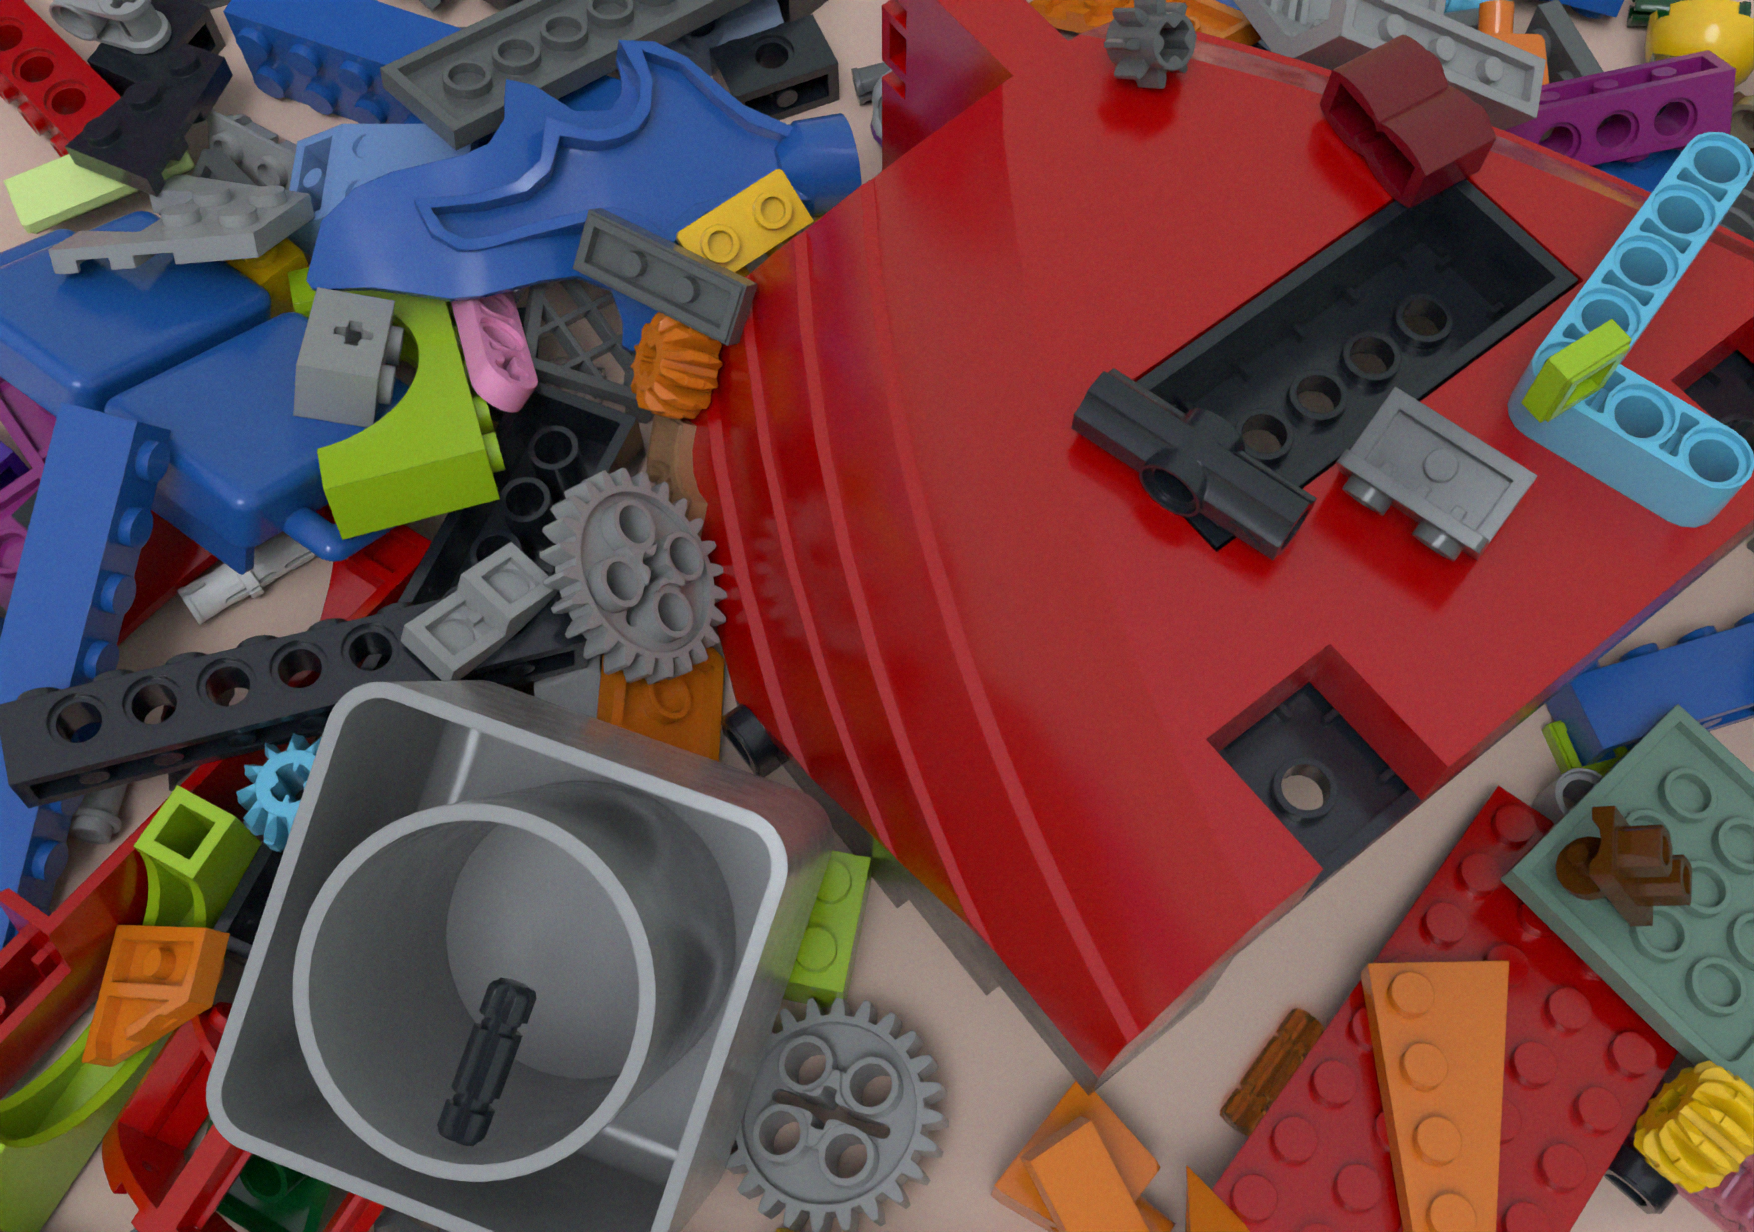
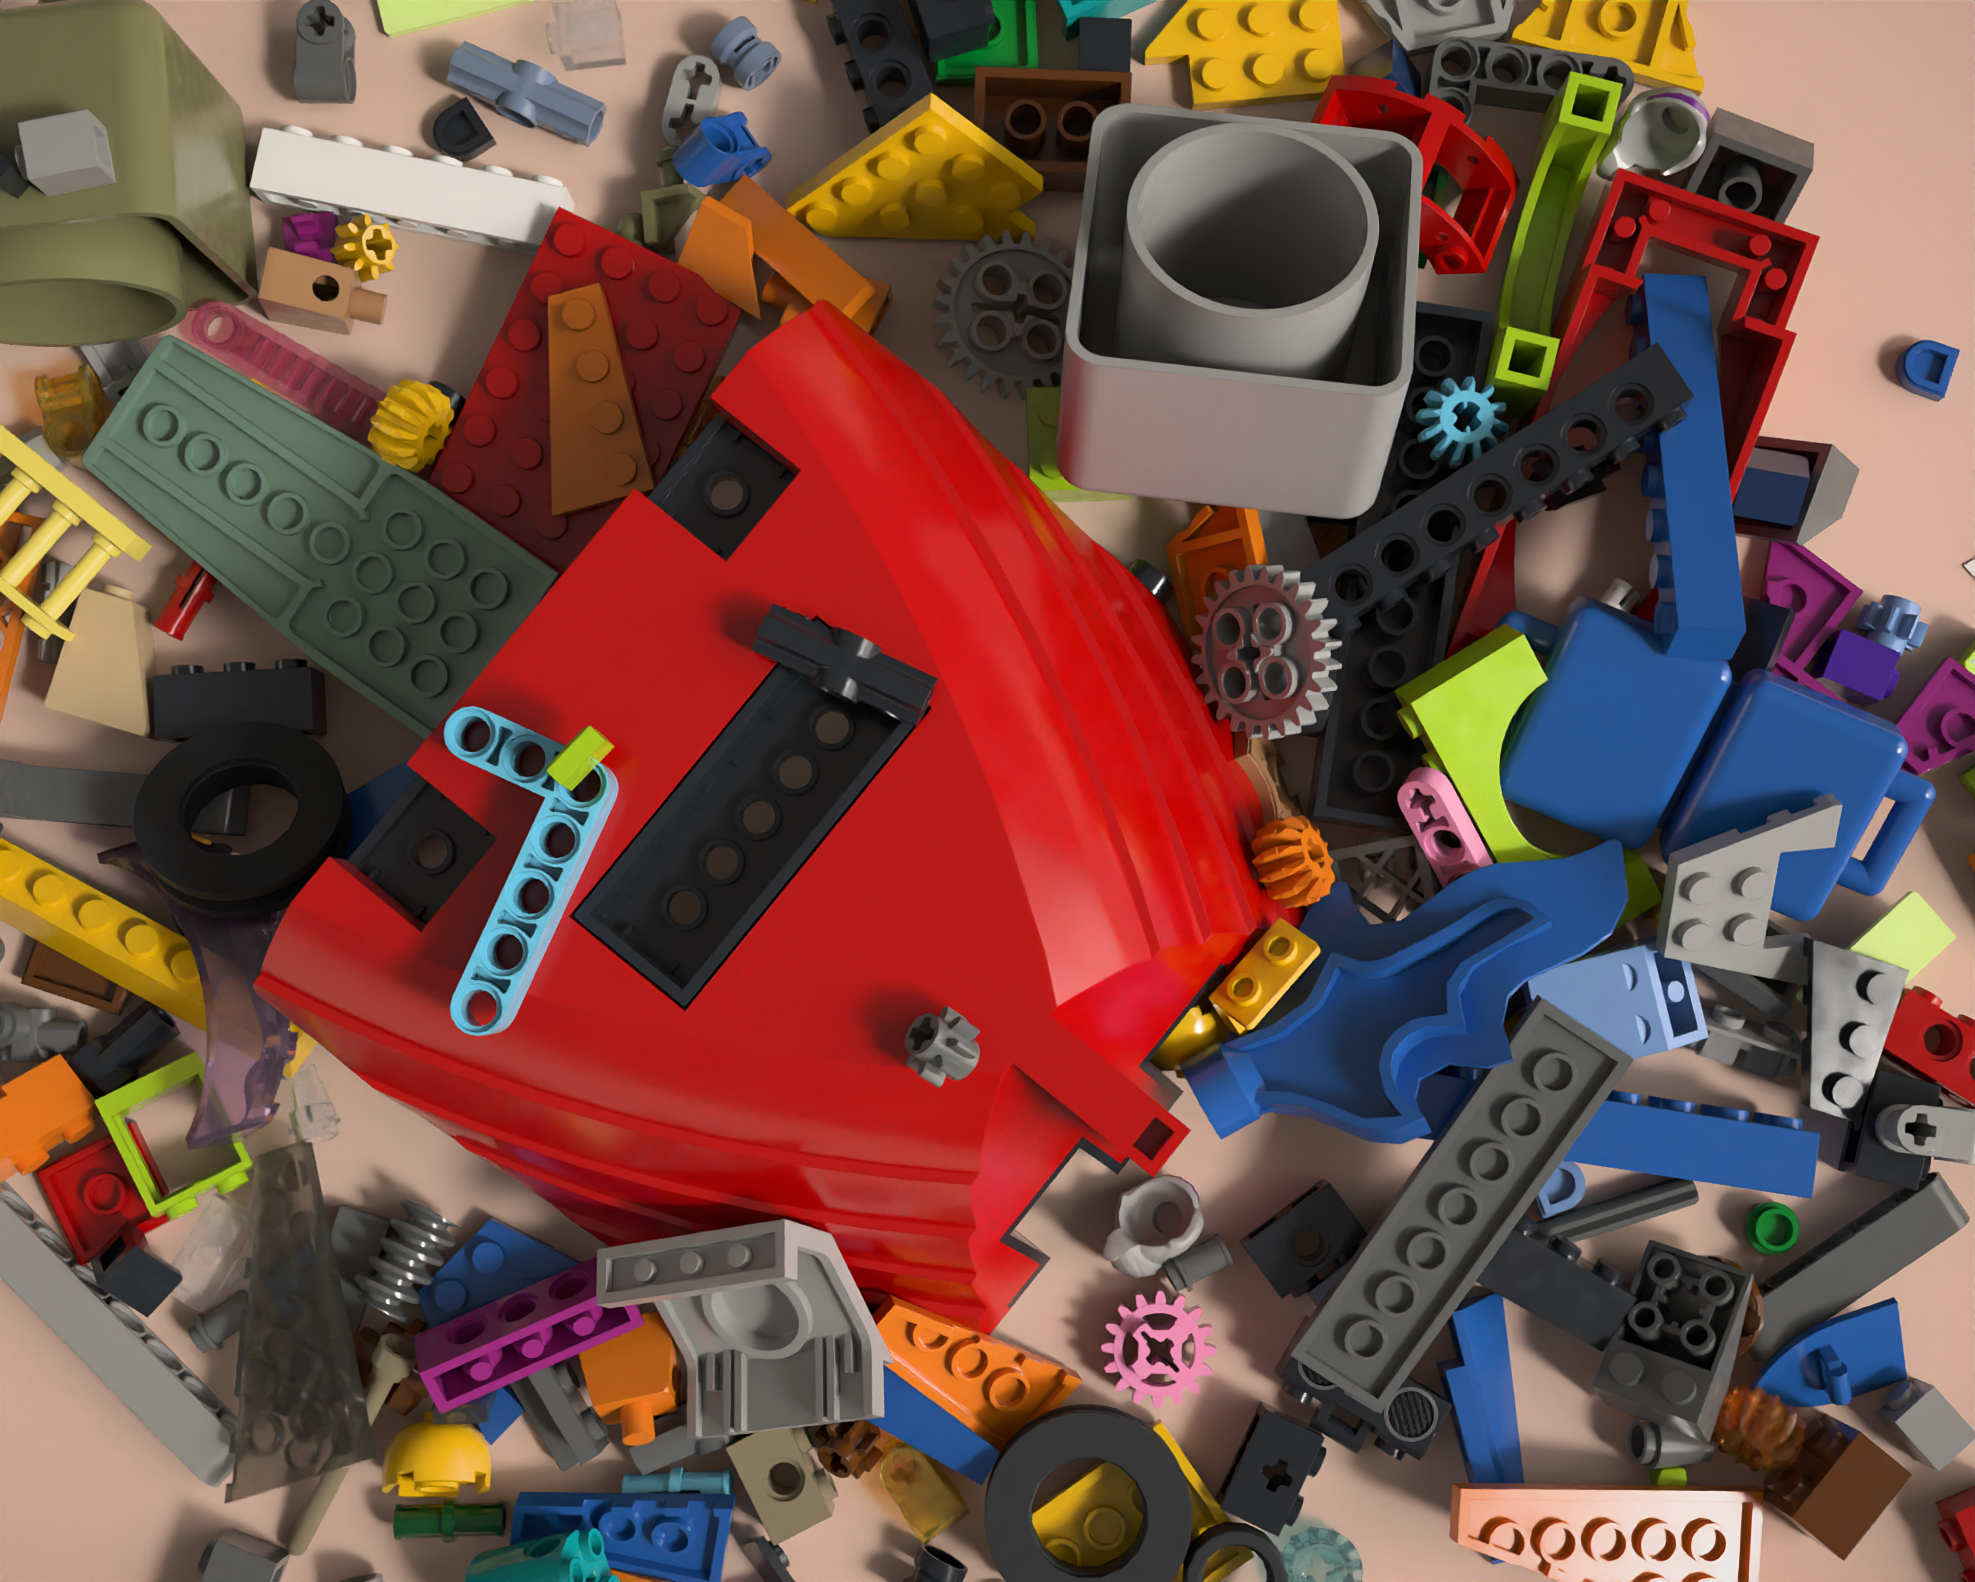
camera: 170 degrees right, 20 degrees up
(152, 987) = (1518, 274): orange wing -> none
(346, 358) = (1567, 816): light grey brick -> none
(480, 616) = (1370, 571): light grey slope -> none
(486, 1061) = (1233, 193): black axle -> none
(664, 276) = (1319, 909): dark grey tile -> none
(1407, 120) = (722, 1018): dark red brick -> none
(1434, 475) = (671, 688): dark grey bracket -> none
(1627, 866) = (479, 576): reddish brown hips -> none

